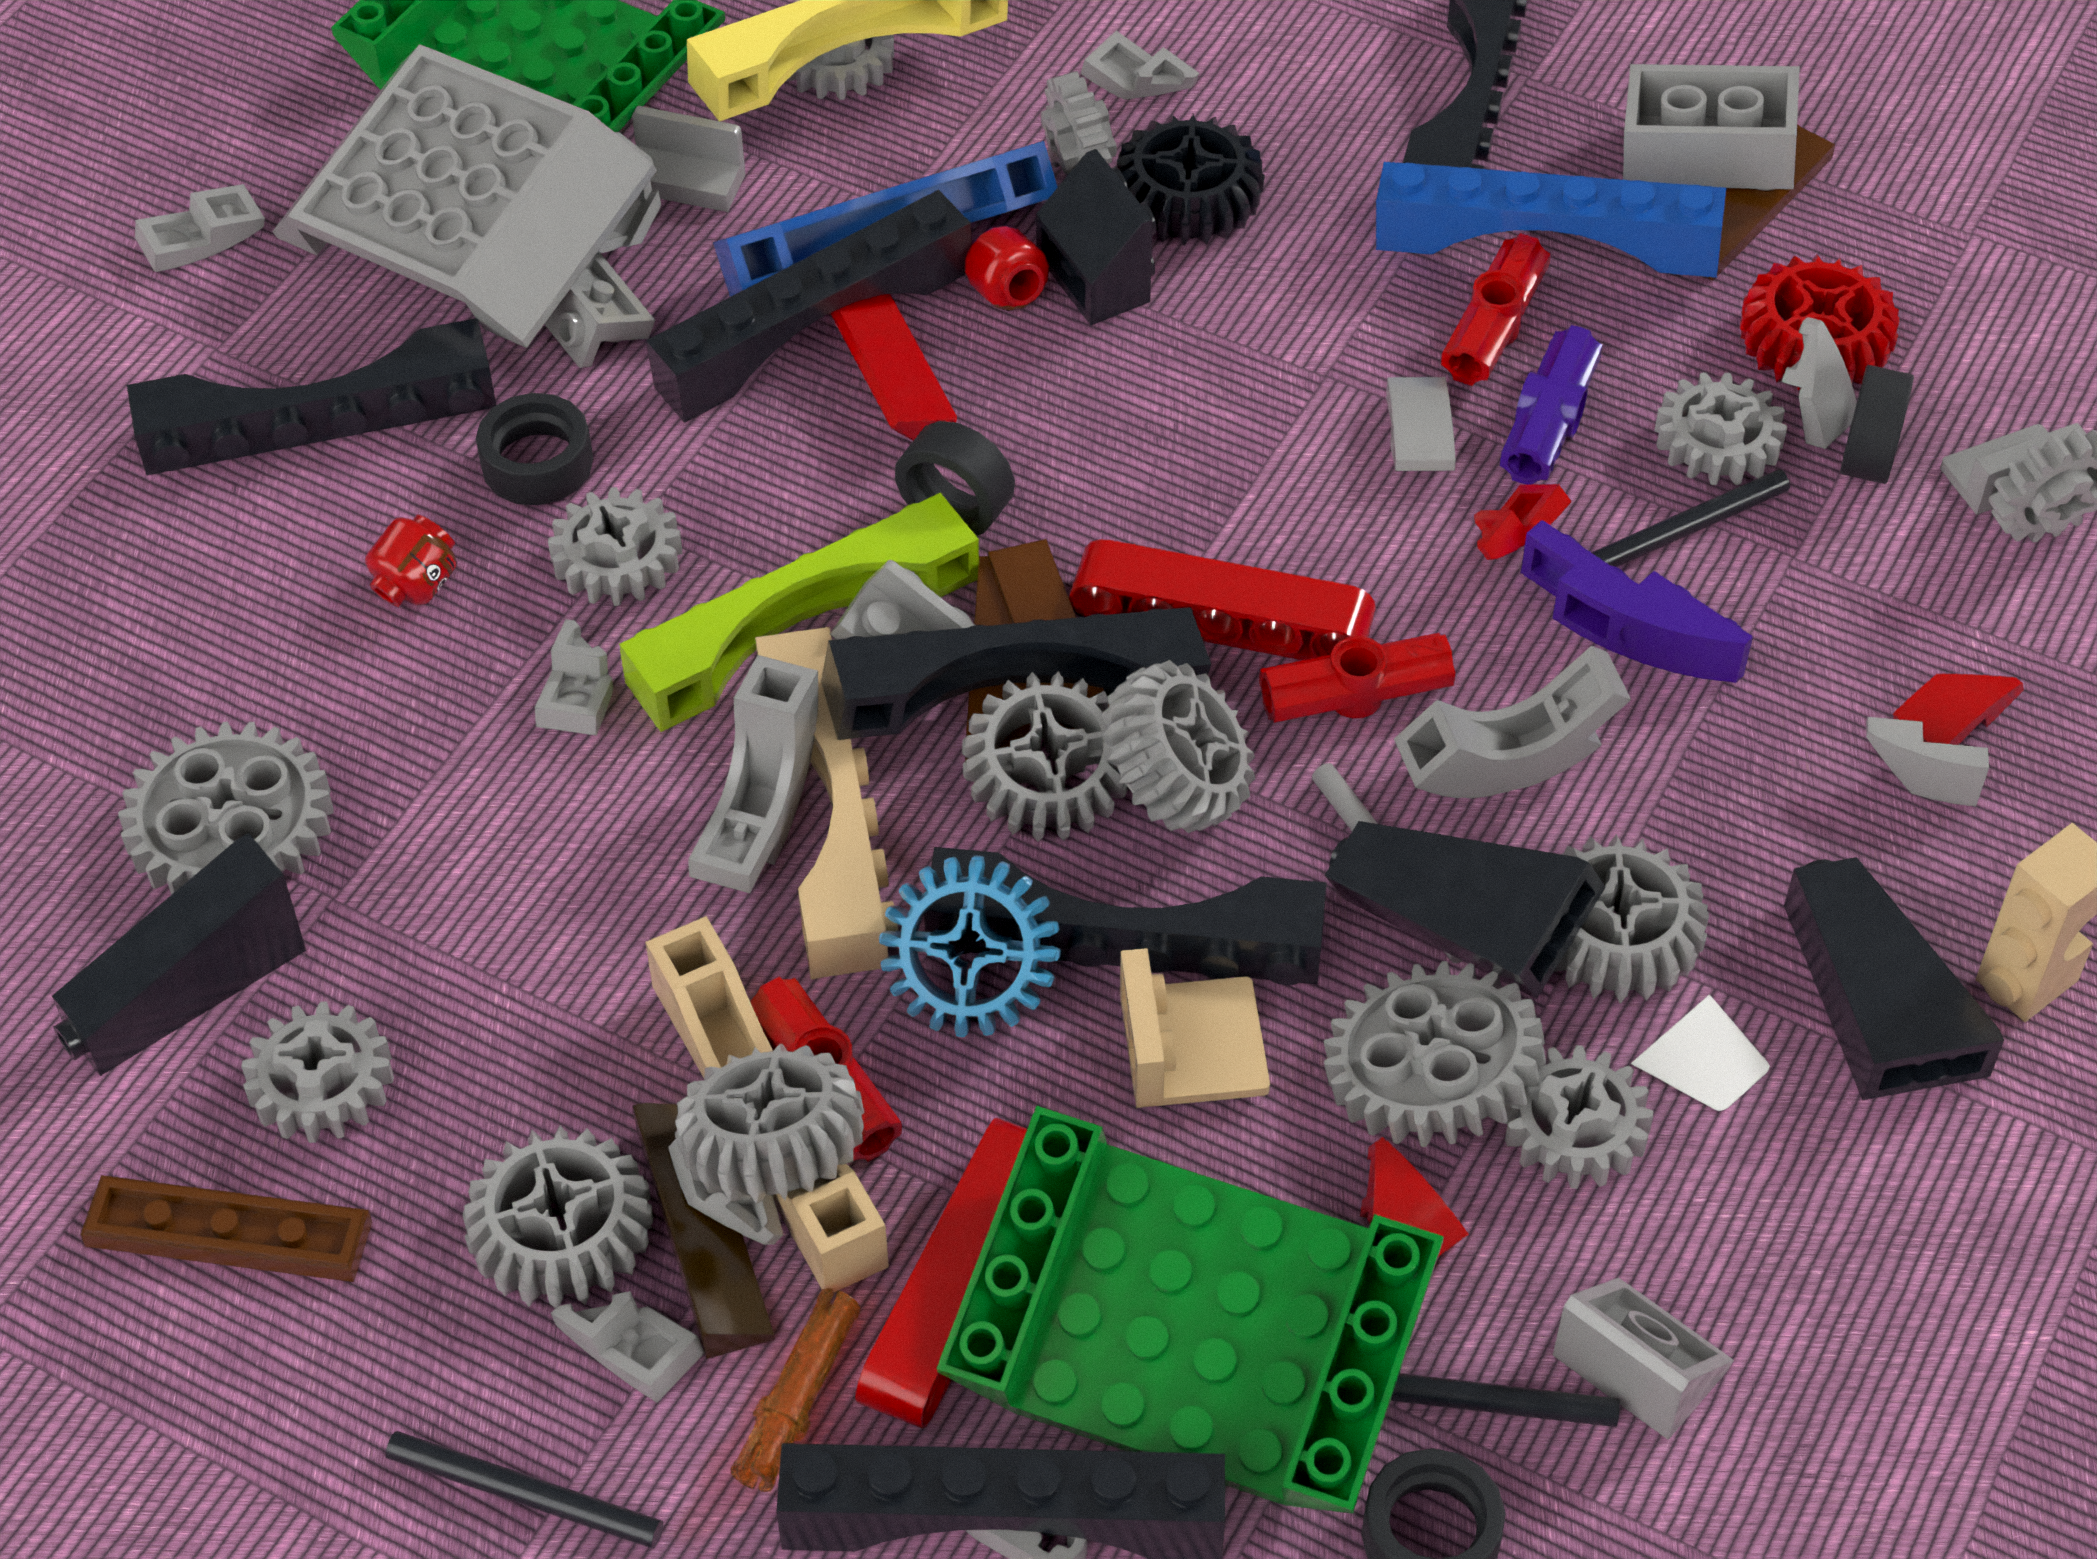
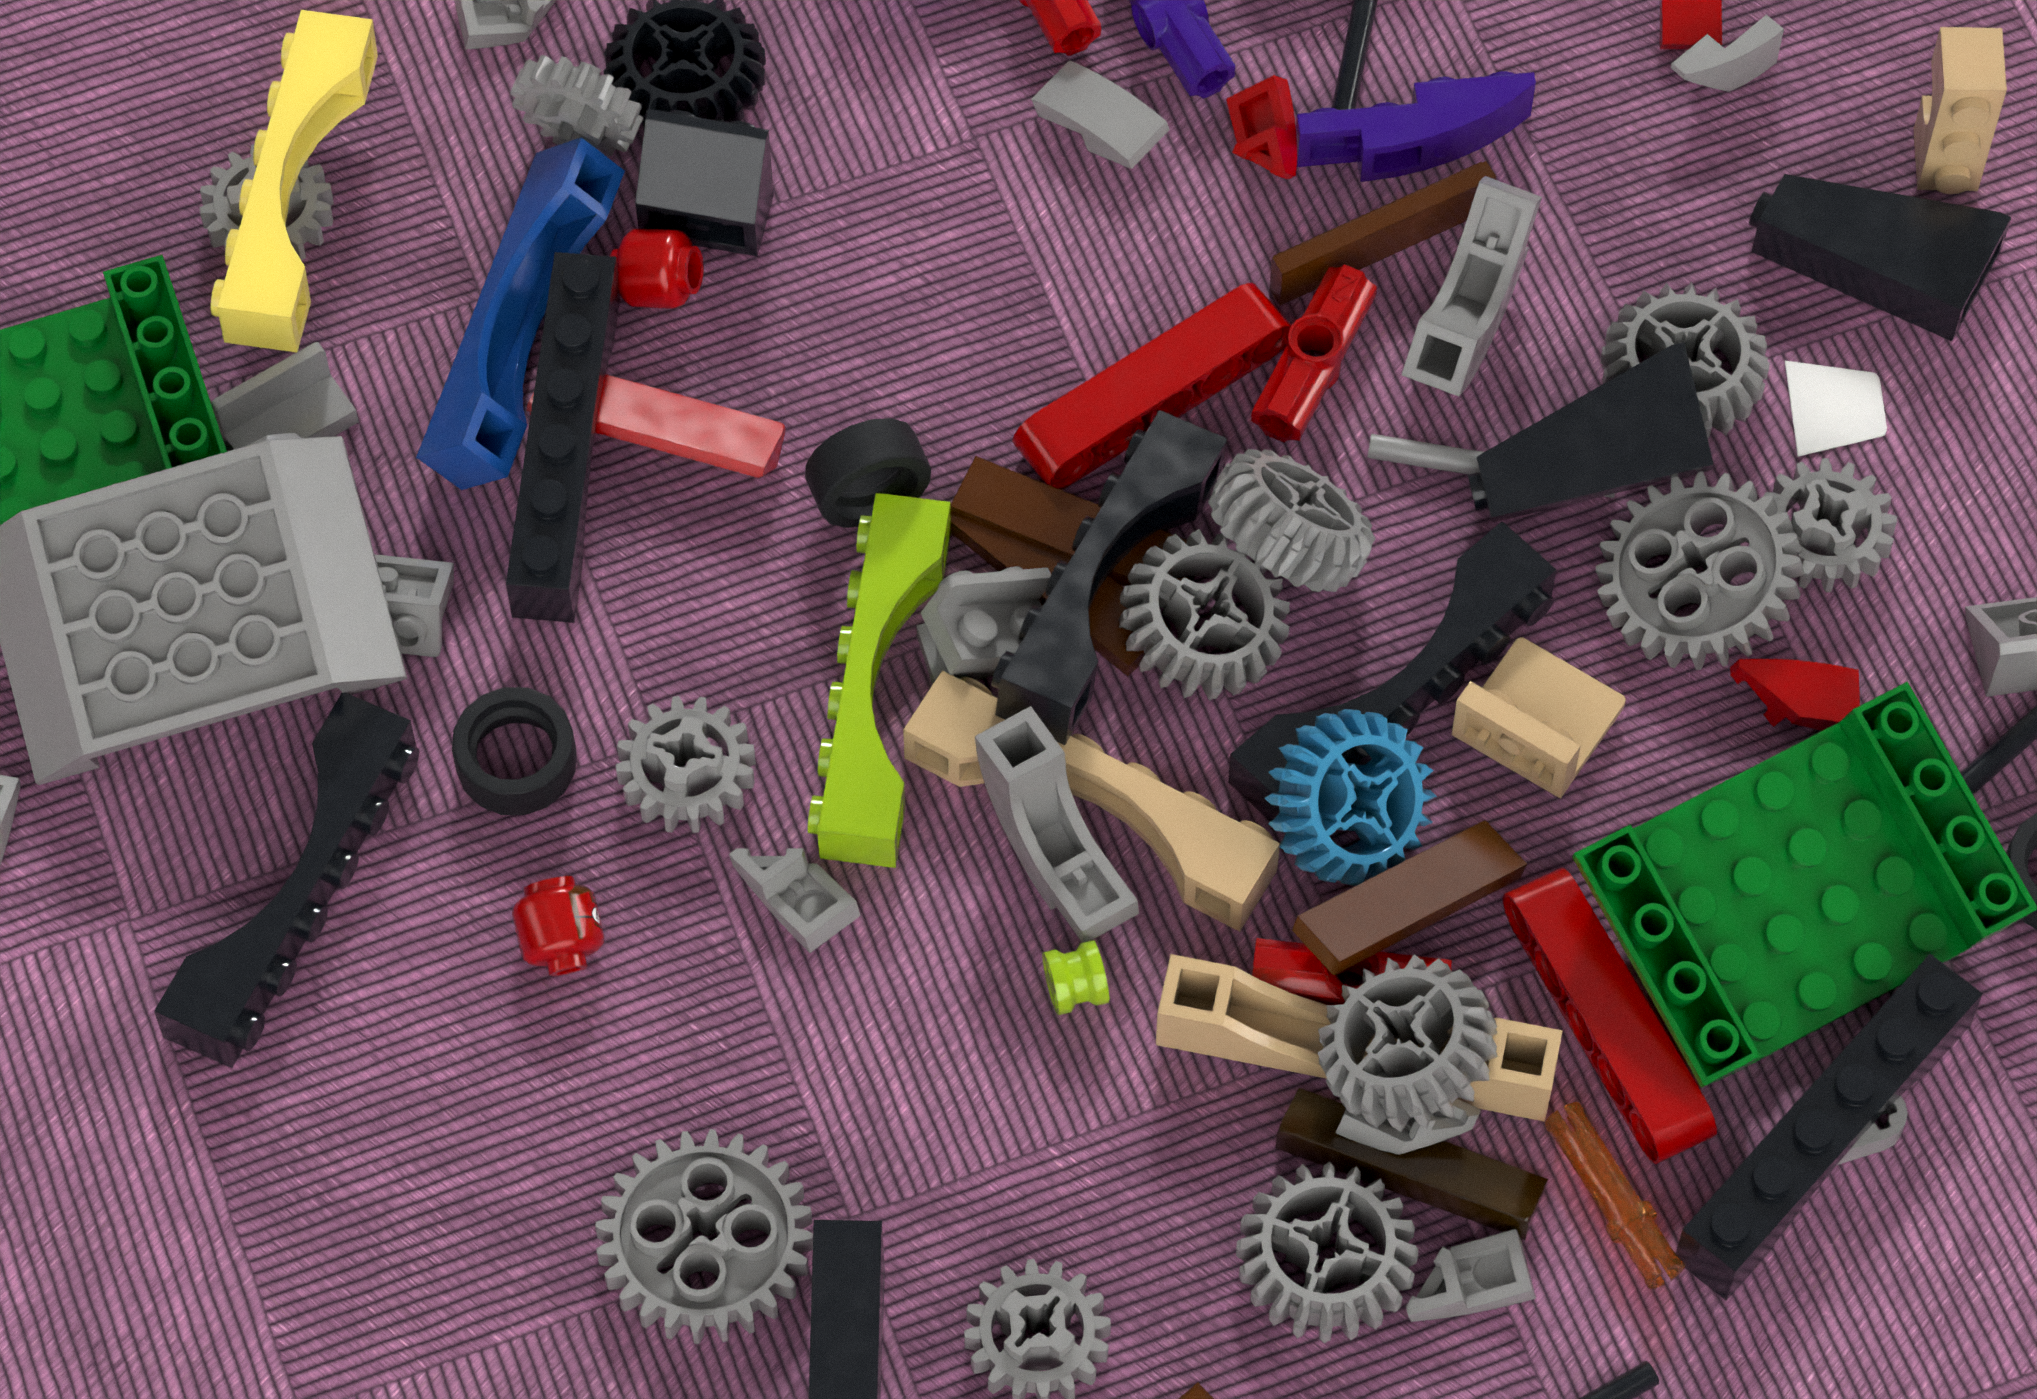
camera: 50 degrees left, 10 degrees up
(655, 890) = (1075, 977): none -> lime wheel
(922, 1048) = (1408, 897): none -> reddish brown tile
(1494, 641) = (1377, 233): none -> reddish brown tile

